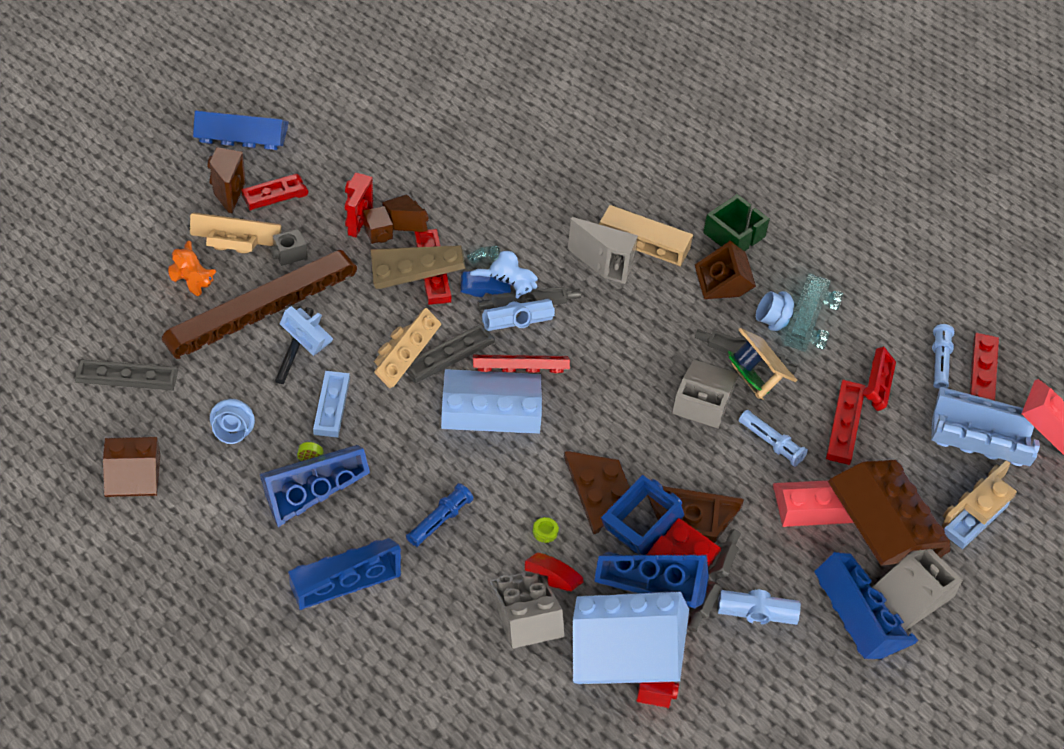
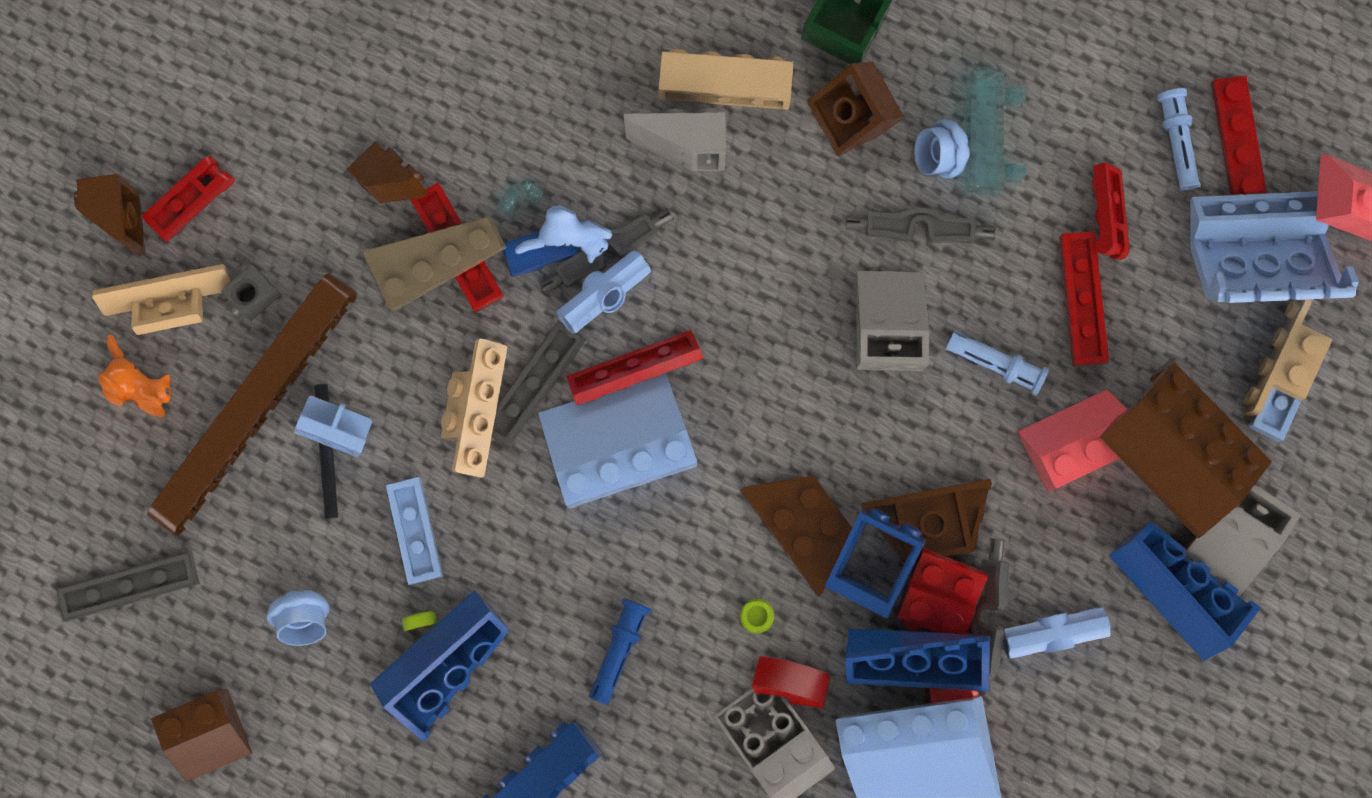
camera: 15 degrees left, 30 degrees up
(239, 128) = (91, 105): blue wedge -> none
(359, 198) = (314, 179): red plate -> none
(378, 225) = (355, 206): reddish brown brick -> none
(750, 355) = (945, 238): piece -> none

